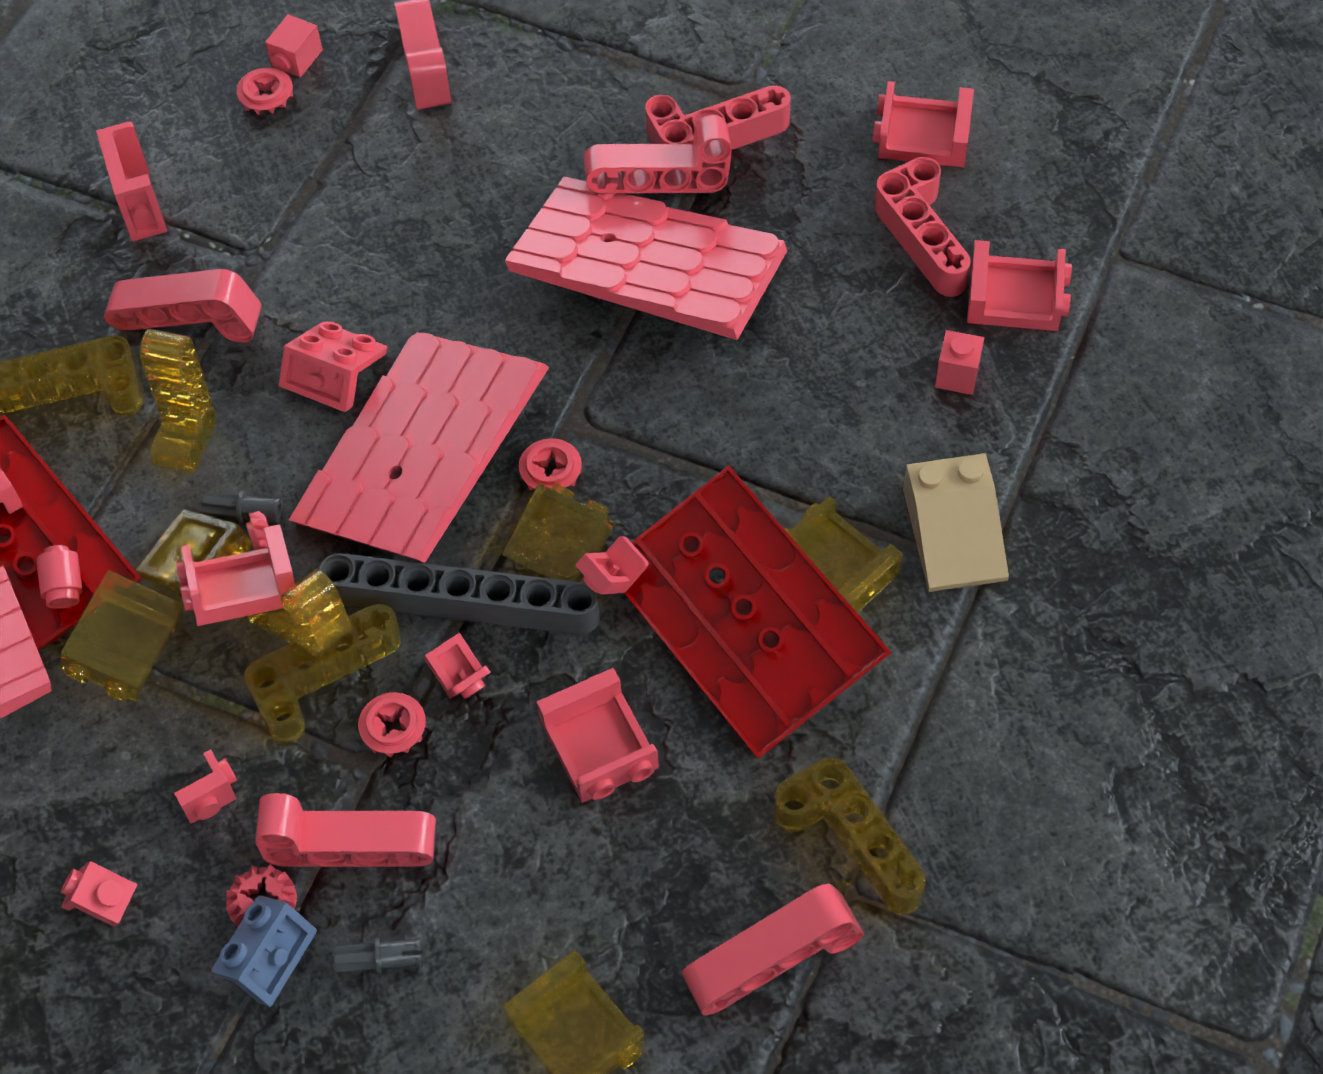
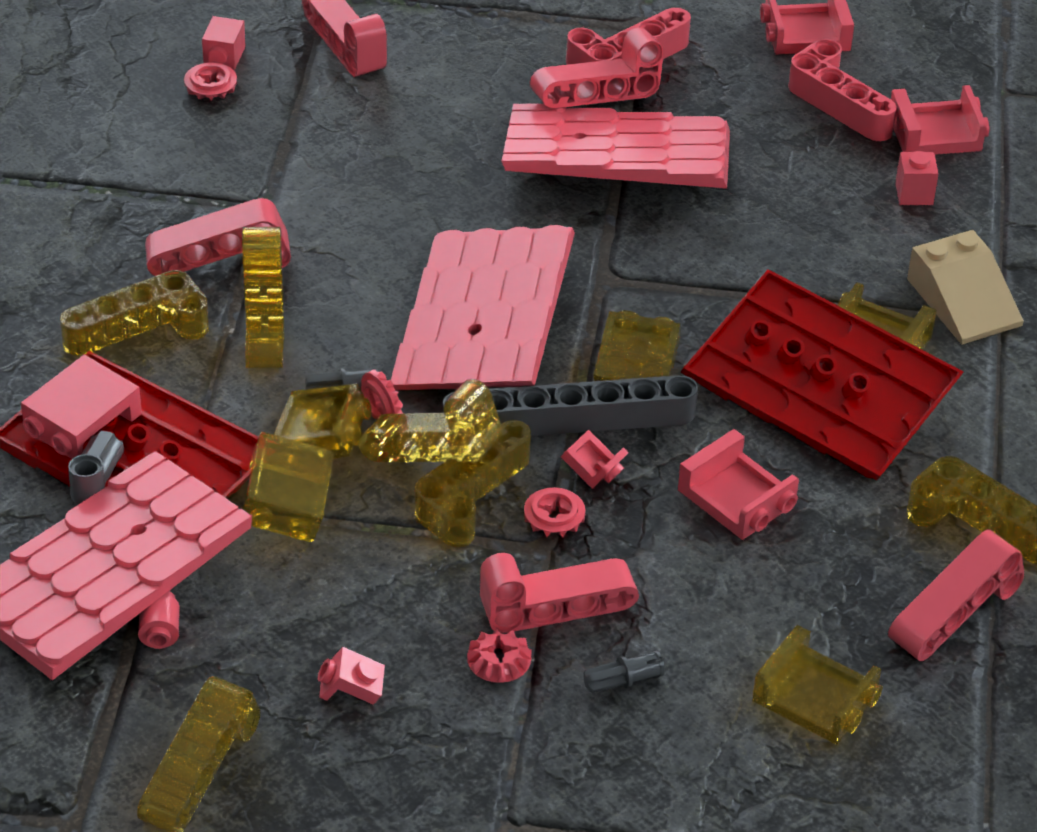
camera: 20 degrees left, 15 degrees down
(59, 577) = (209, 452): coral brick -> none
(131, 181) = (130, 168): coral panel -> none
(209, 793) = (418, 586): coral bracket -> none
(236, 583) = (410, 410): coral panel -> none
(265, 949) = (525, 681): sand blue bracket -> none
(326, 364) = (371, 269): coral bracket -> none
(538, 457) = (588, 303): coral gear -> none
(614, 569) = (702, 359): coral bracket -> none

